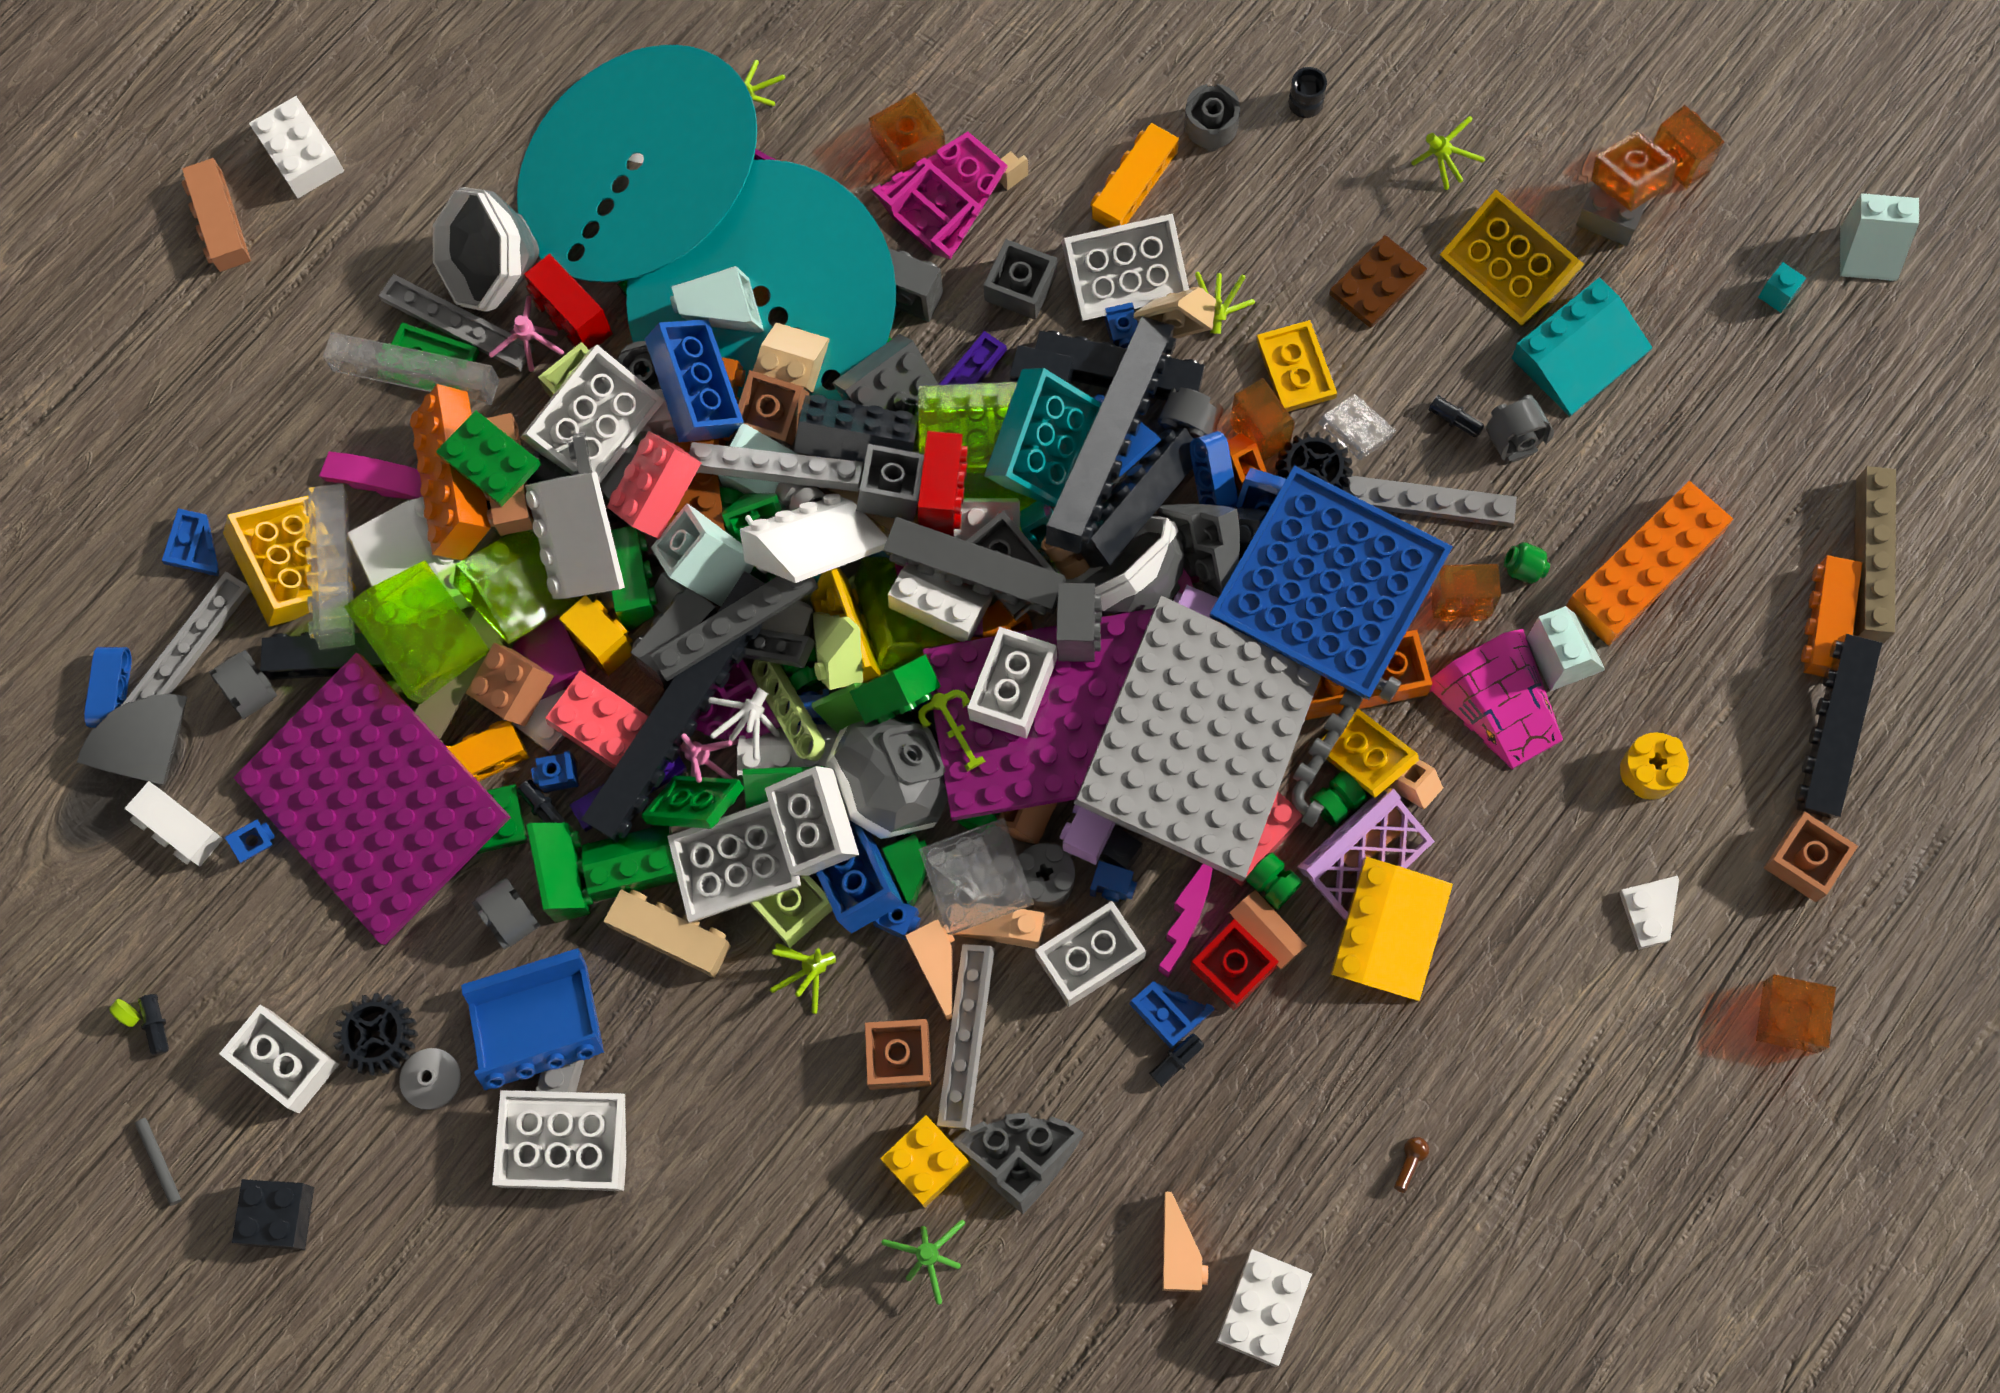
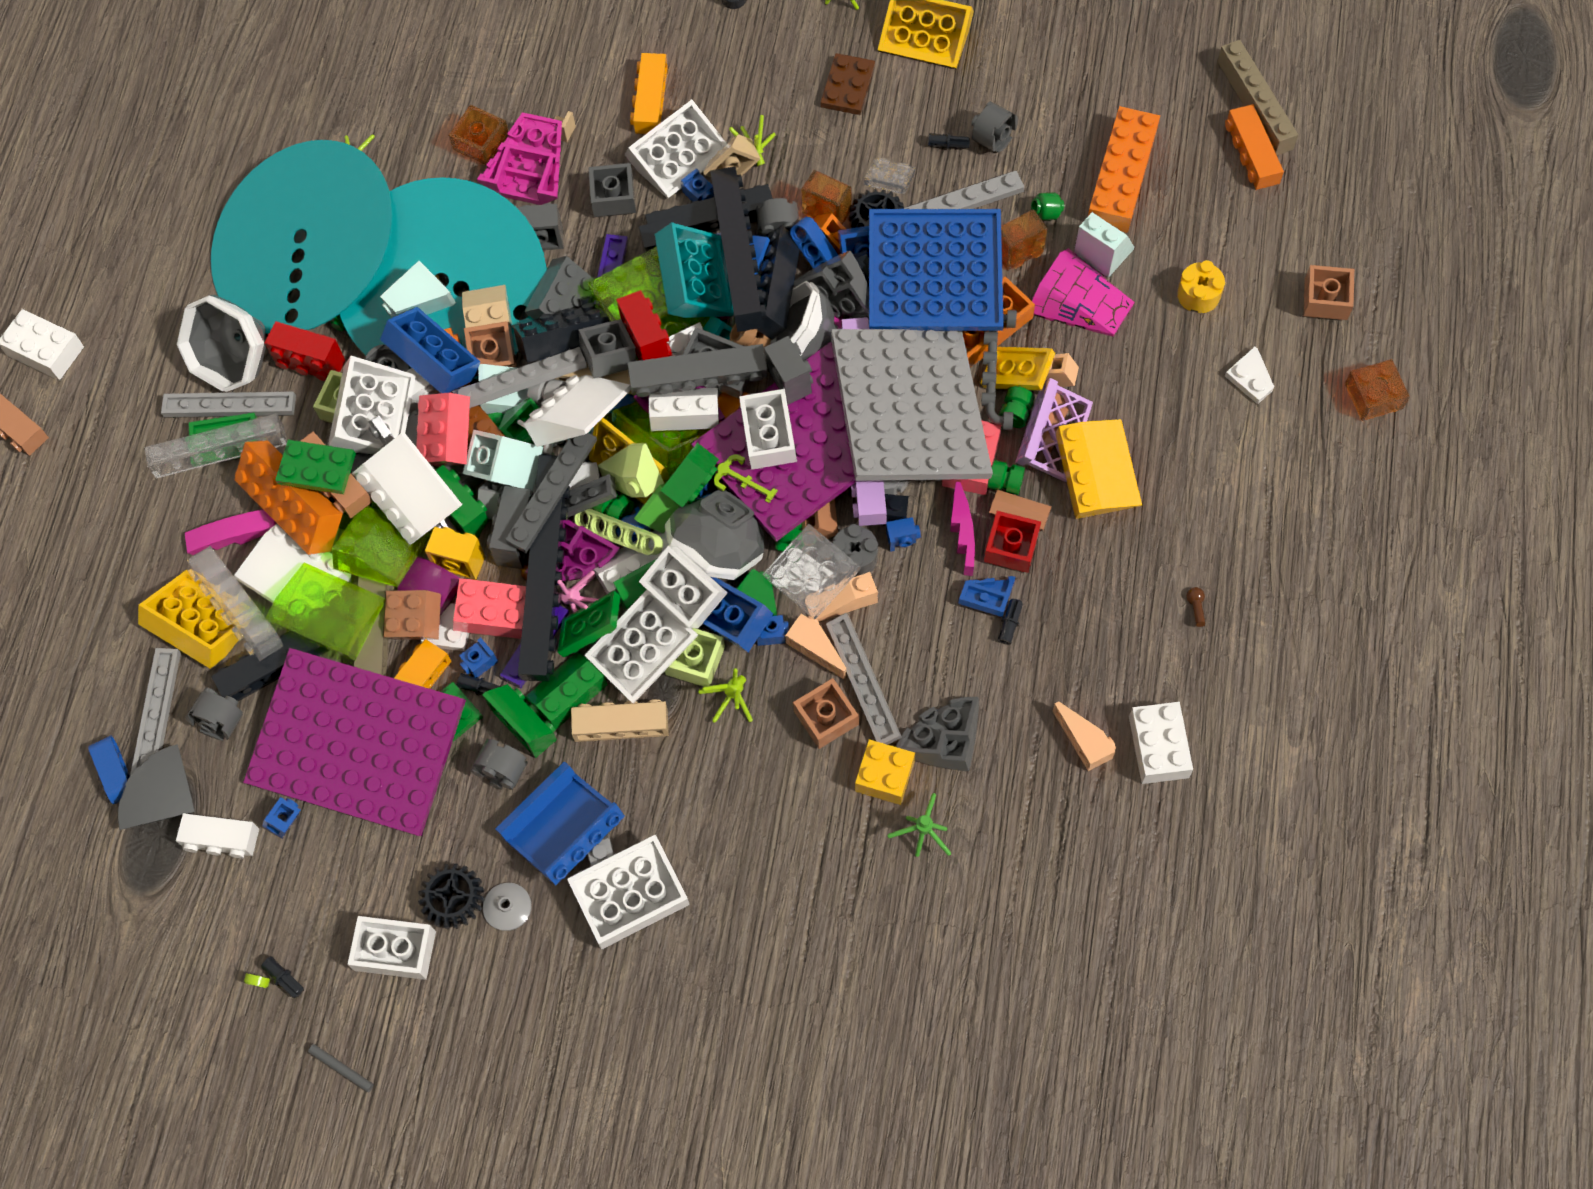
camera: 30 degrees left, 5 degrees down
(191, 544) = (118, 643): blue wing -> none
(273, 1214) = (449, 1054): black brick -> none
(525, 332) = (286, 382): bright pink plant -> none
(750, 711) = (595, 542): white plant -> none
(1090, 953) = (915, 583): white brick -> none
(1212, 116) = (679, 32): dark grey brick -> none
(1296, 366) = (827, 155): yellow plate -> none
(1582, 347) = (1002, 62): teal slope -> none
(1838, 726) = (1298, 205): black brick -> none

